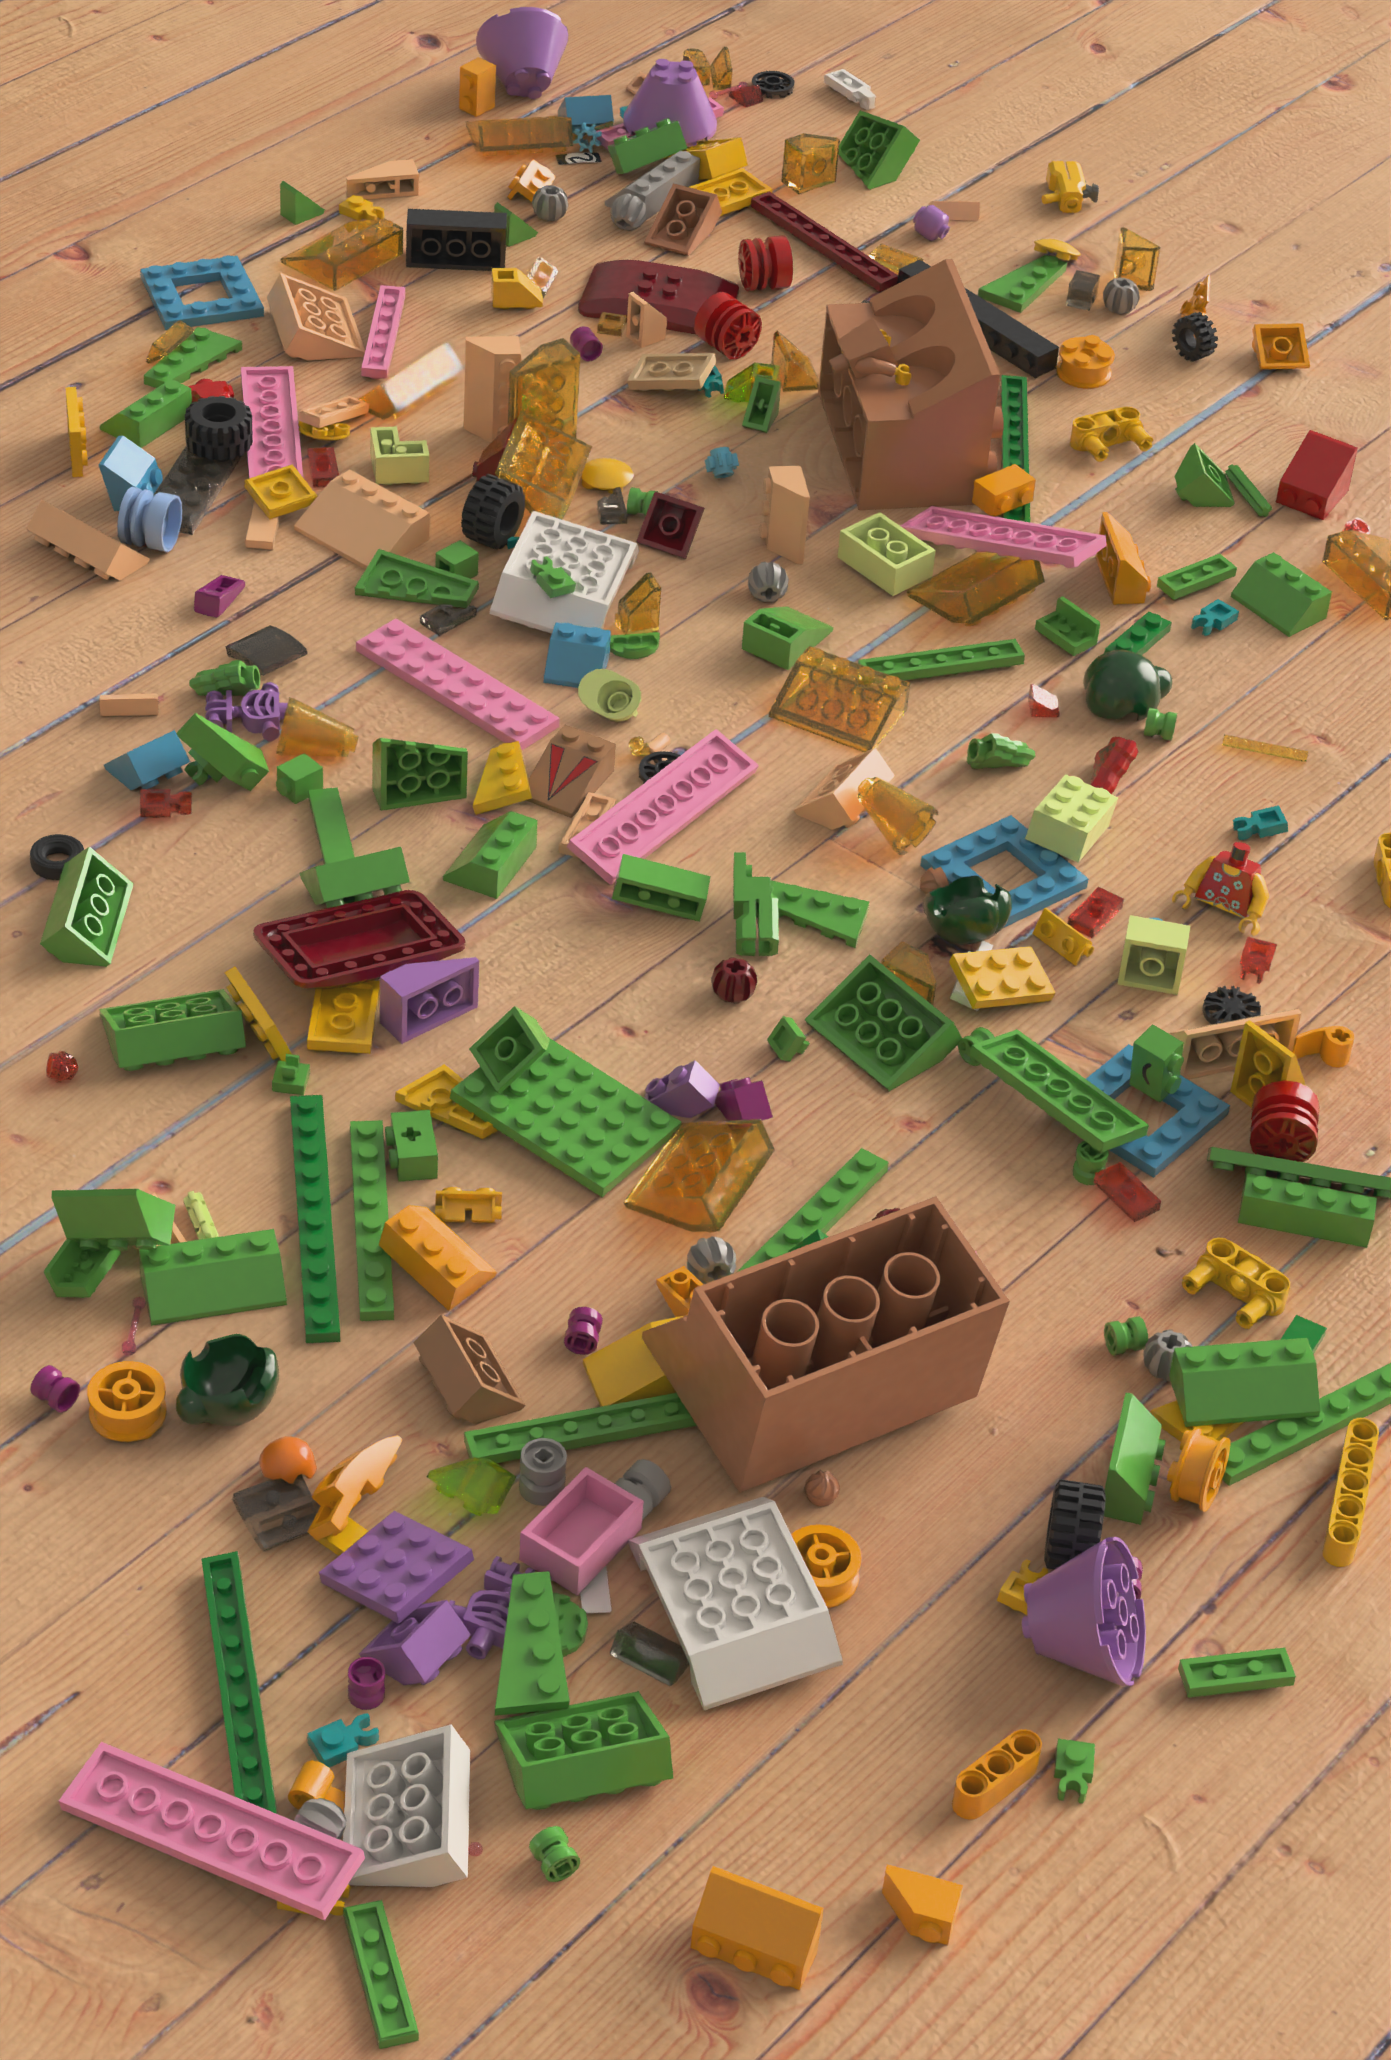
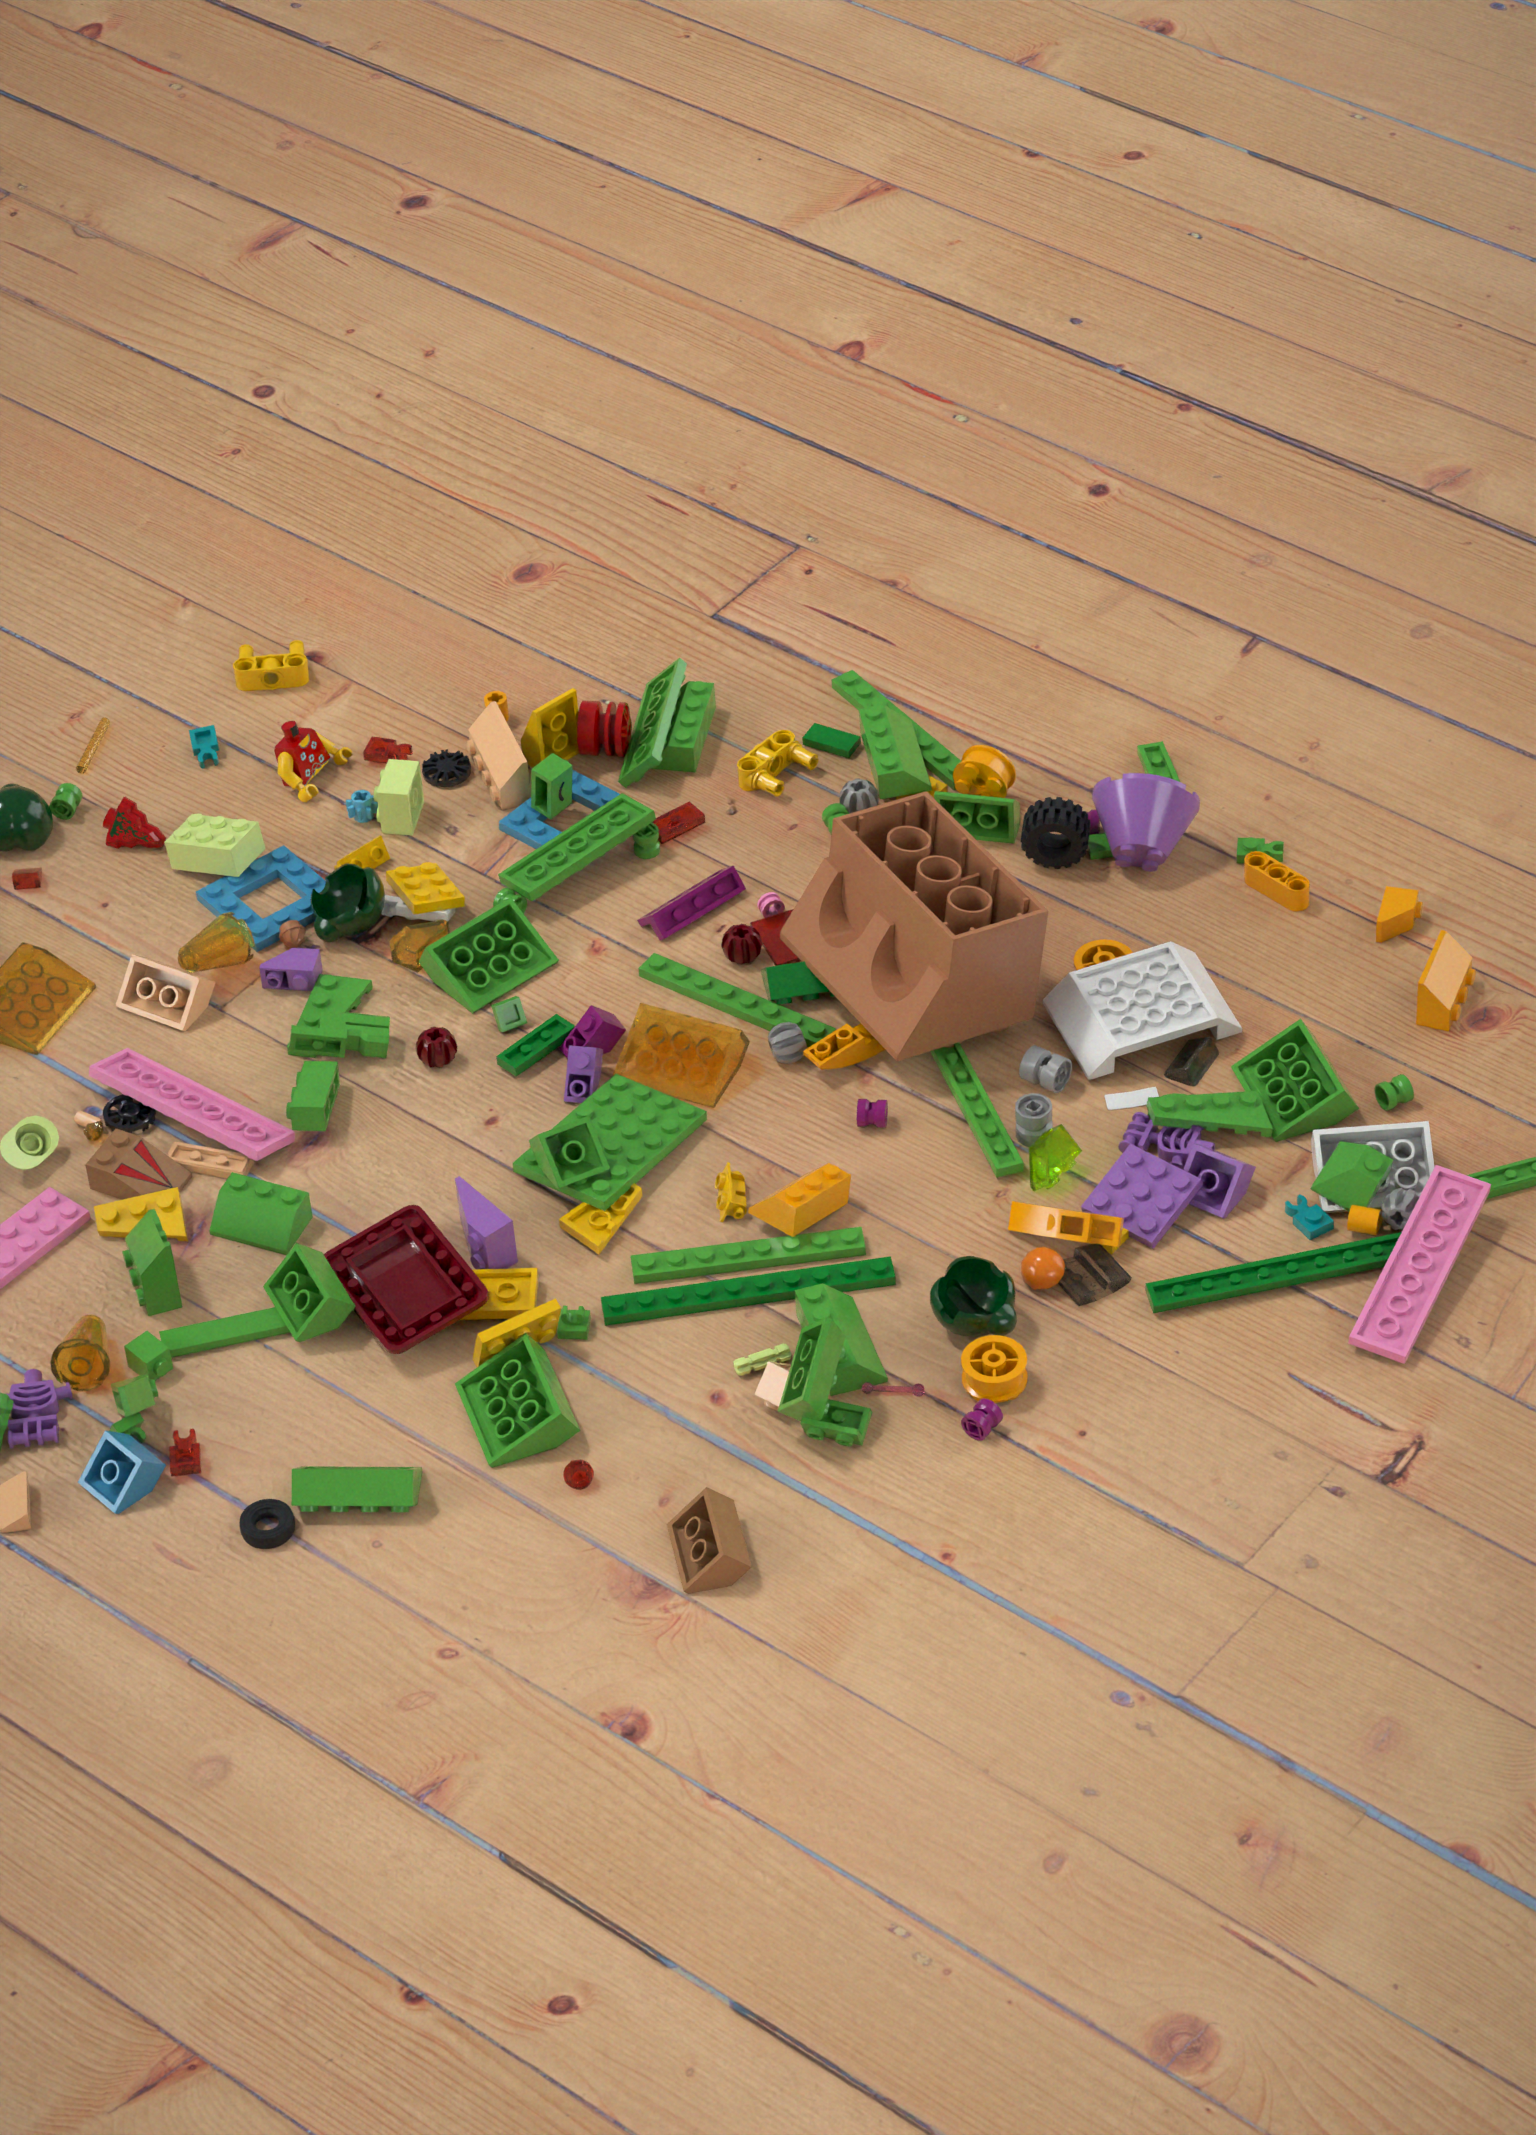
camera: 85 degrees left, 0 degrees up
(366, 1683) = (1258, 1202): magenta wheel -> none
(379, 1774) = (1352, 1175): none -> bright green slope
(413, 1145) = (663, 1229): bright green brick -> none
(467, 1372) = (930, 1176): medium nougat slope -> none
(581, 1530) = (1095, 1092): bright pink piece -> none
(627, 1370) = (907, 1085): yellow slope -> none
(734, 1058) = (535, 1045): none -> green plate
(874, 880) = (292, 970): none -> medium lavender slope
(977, 1199) = (694, 902): none -> magenta fence
(998, 752) = (112, 898): bright green rock -> none
(1013, 1589) = (1103, 873): yellow plate -> none
(1095, 912) = (323, 844): clear red plate -> none
(1350, 1492) = (982, 713): yellow beam -> none

